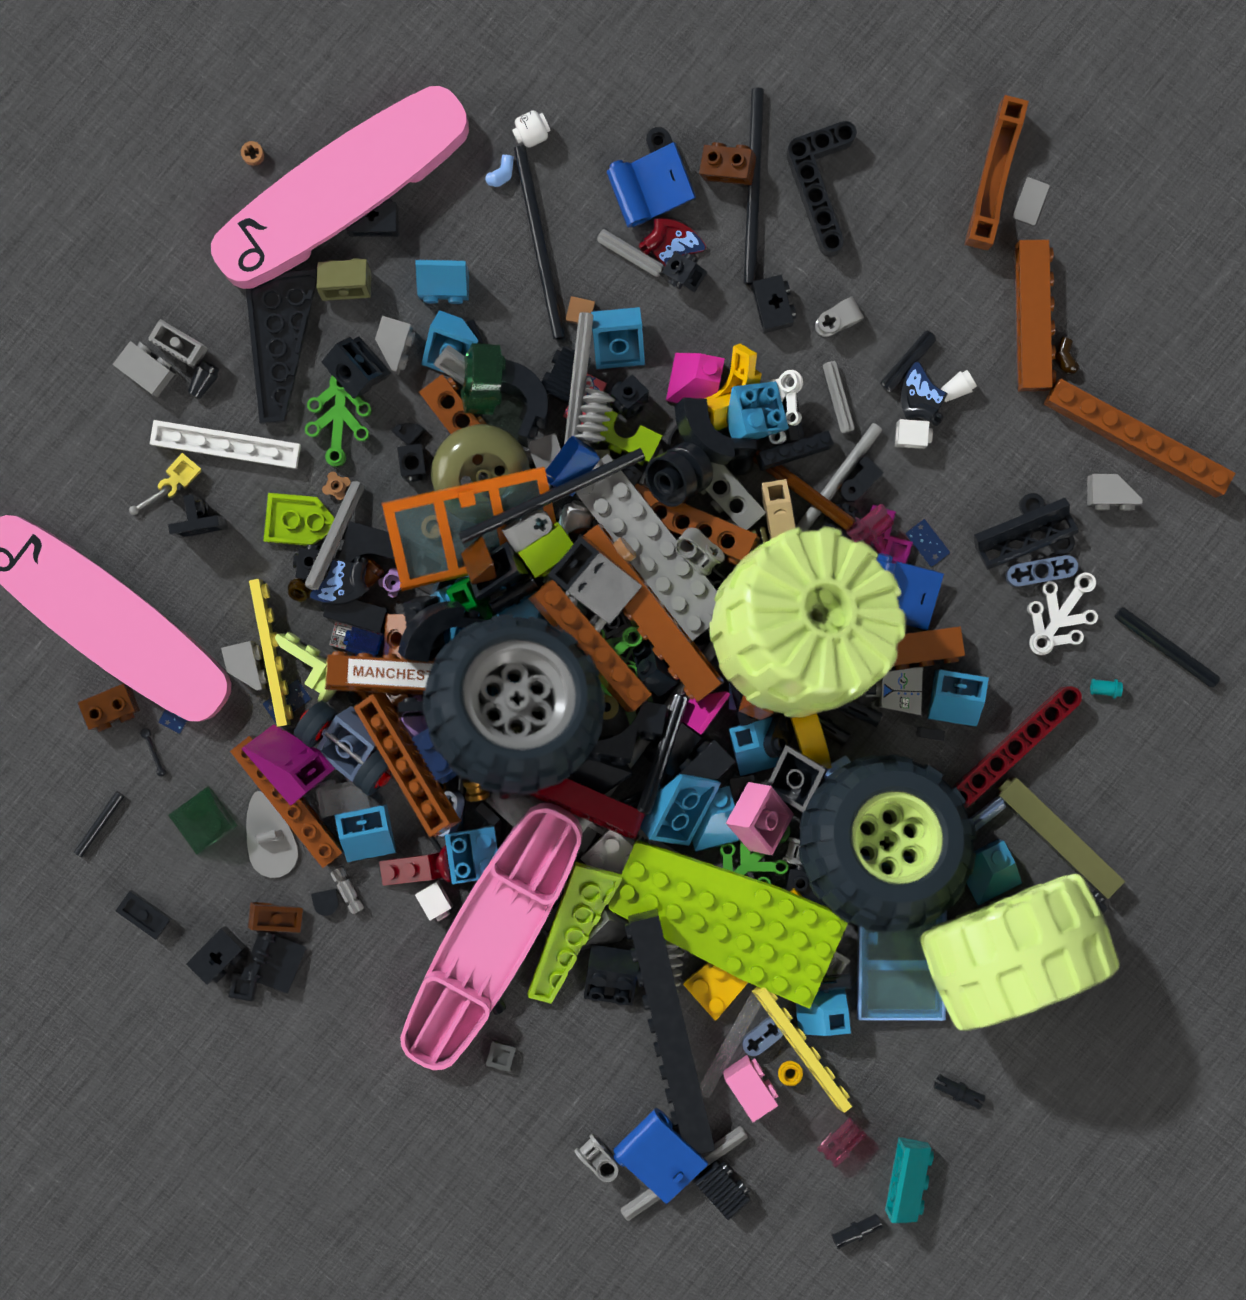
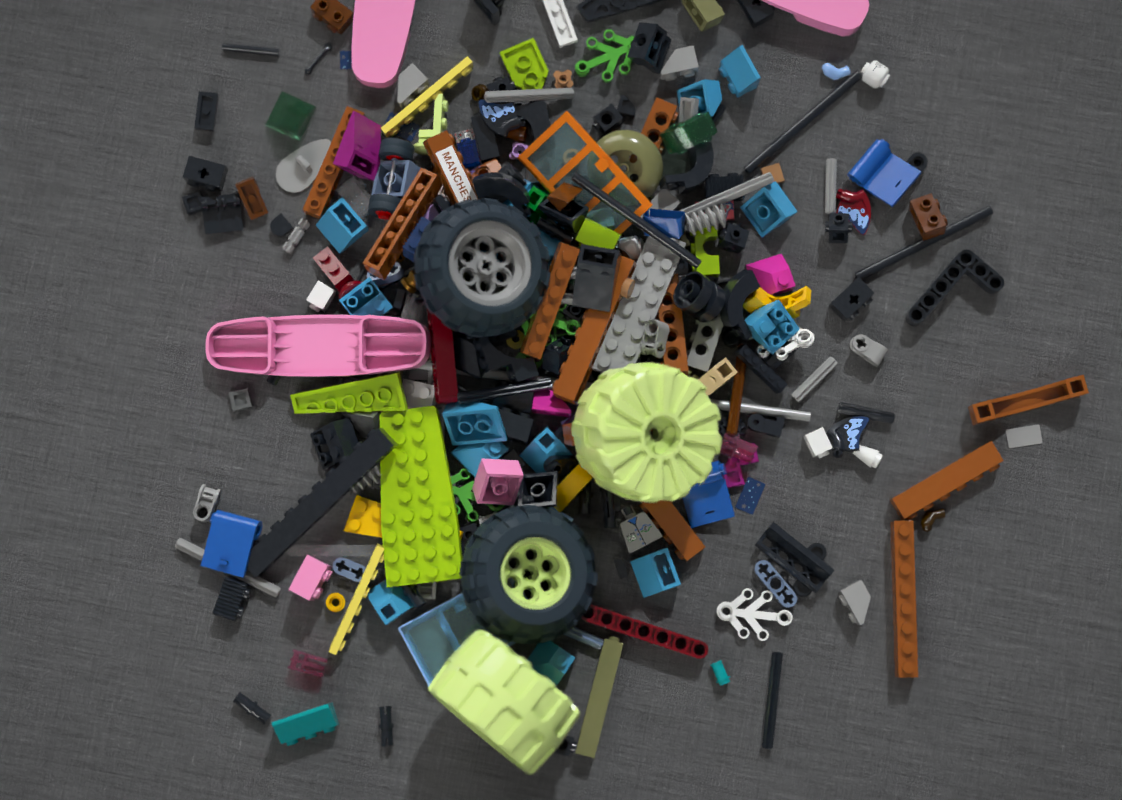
camera: 65 degrees right, 5 degrees down
(525, 531) = (602, 214): light grey piece -> none

